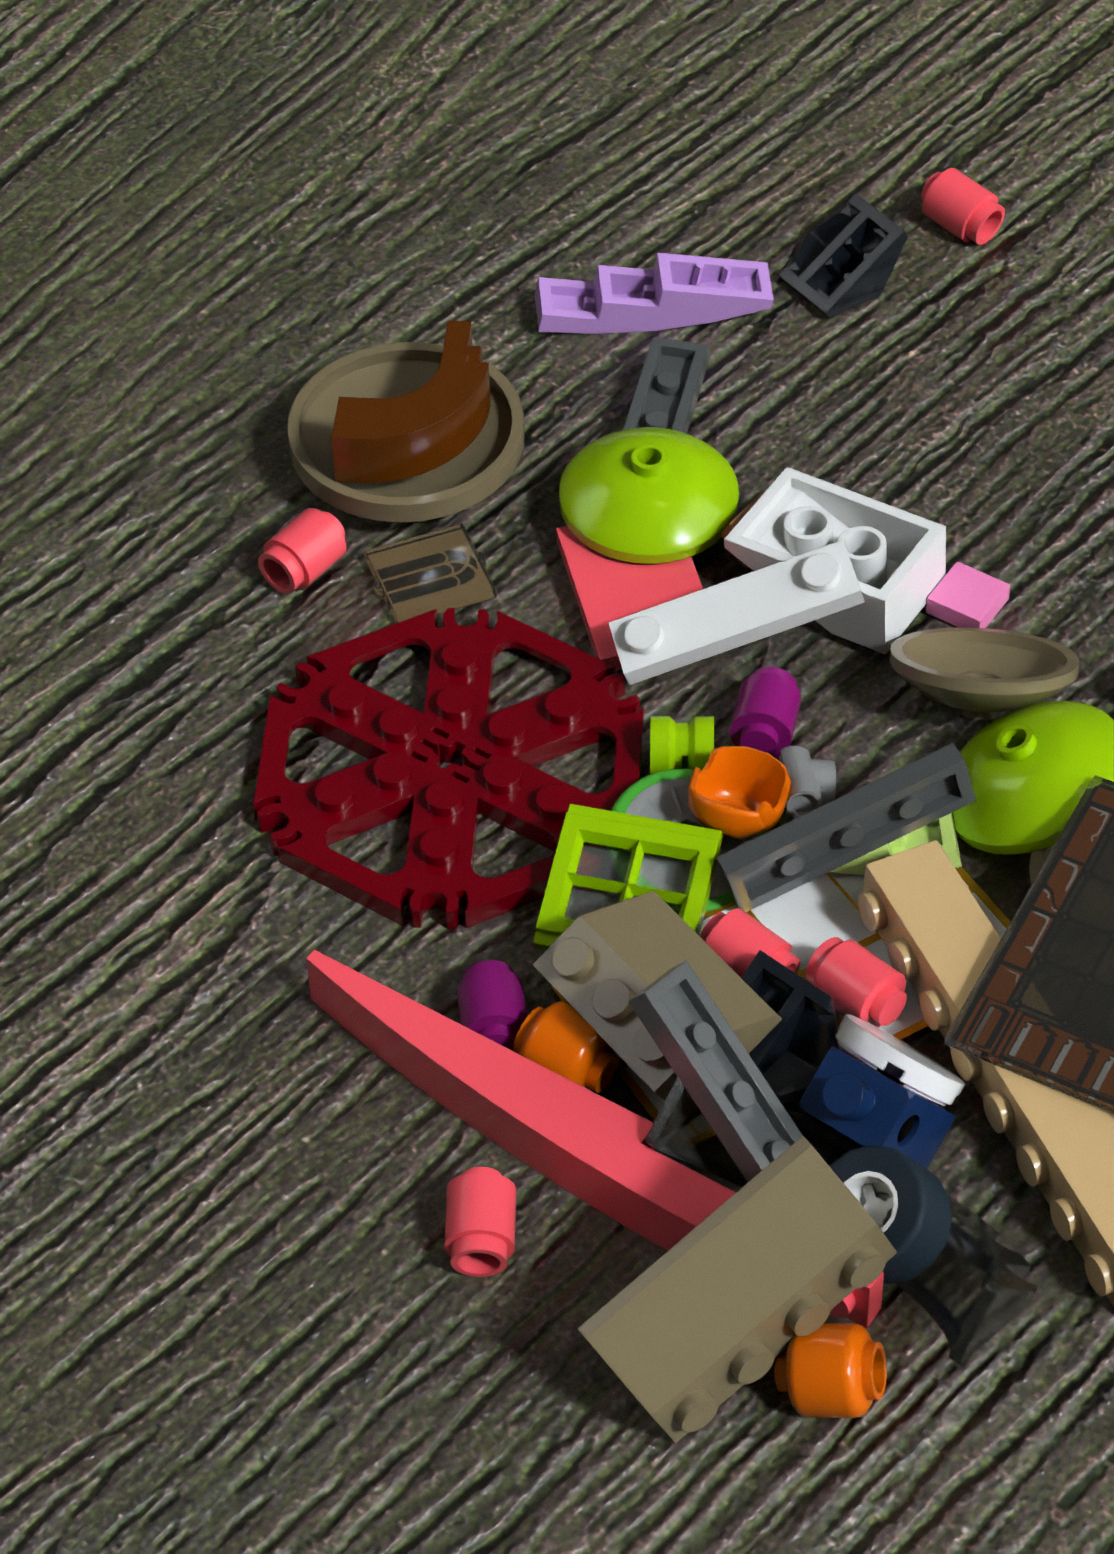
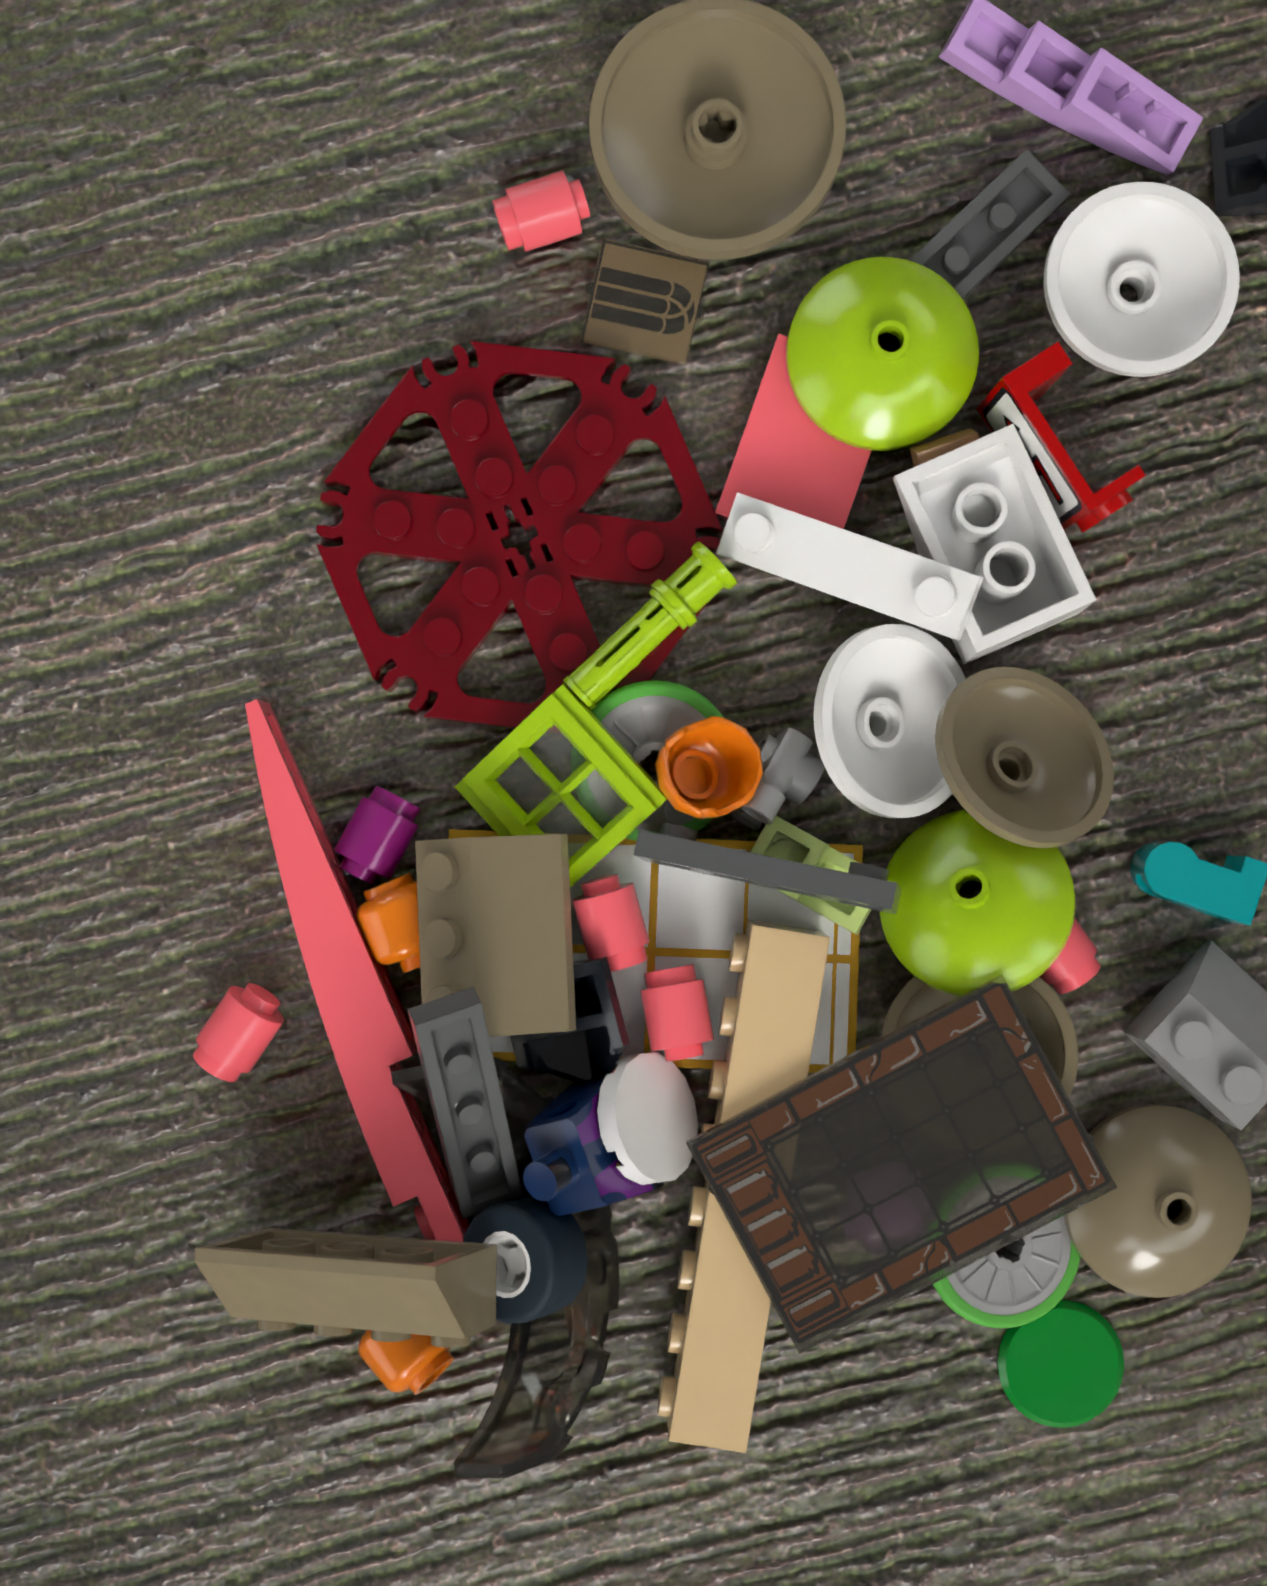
camera: 30 degrees right, 40 degrees up
(418, 430) = (720, 160): reddish brown arch -> none
(616, 718) = (671, 605): none -> lime pin
(680, 744) = (710, 660): lime wheel -> none
(766, 711) = (799, 669): magenta brick -> none
(805, 357) = (1164, 249): none -> white dish
(844, 464) = (1067, 490): none -> red panel
(858, 696) = (899, 684): none -> white dish
(967, 597) = (1081, 648): bright pink tile -> none

